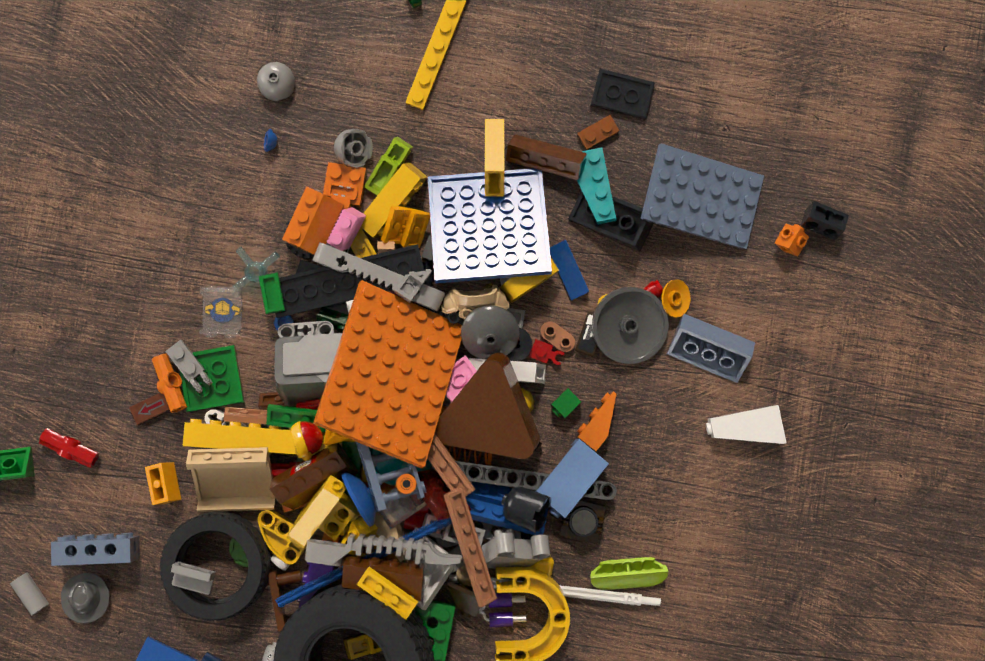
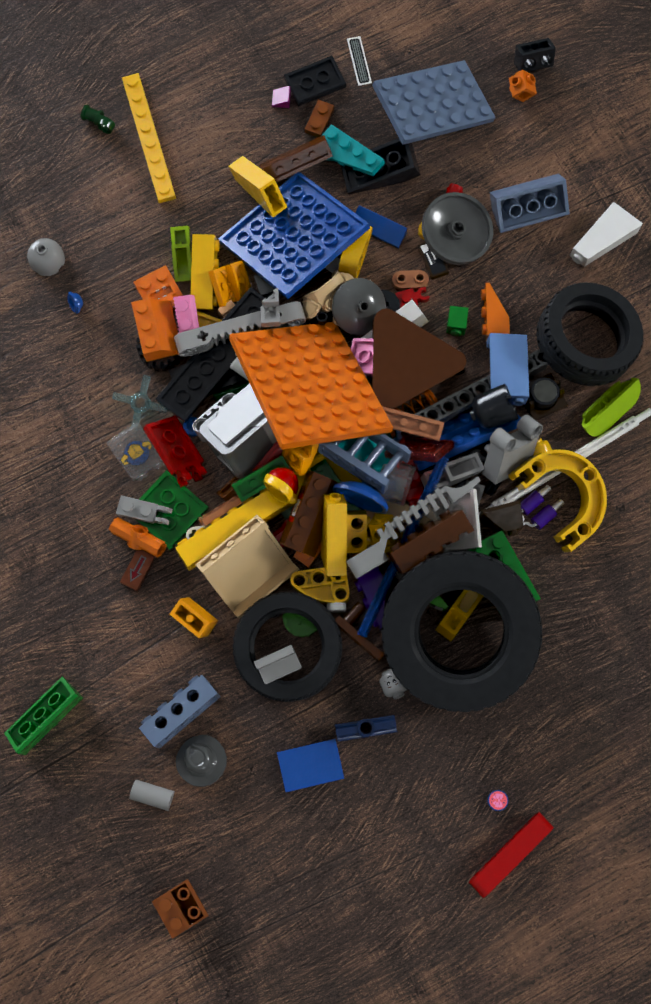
camera: 35 degrees left, 10 degrees down
(68, 448) = (94, 651): red piece -> none
(252, 335) = (176, 449): none -> red tile
(272, 293) = (166, 404): green tile -> none
(353, 147) = (144, 257): light grey cylinder -> none
(387, 592) = (444, 543): yellow plate -> none
(405, 484) = (389, 452): orange tile -> none
(462, 576) = (489, 500): tan tile -> none
(470, 547) = (477, 466): nougat tile -> none
(581, 87) = (281, 97): none -> slope
(675, 103) = (359, 60): none -> sticker
(676, 298) = (474, 186): light orange dish -> none
(699, 504) = (608, 306): none -> black tyre

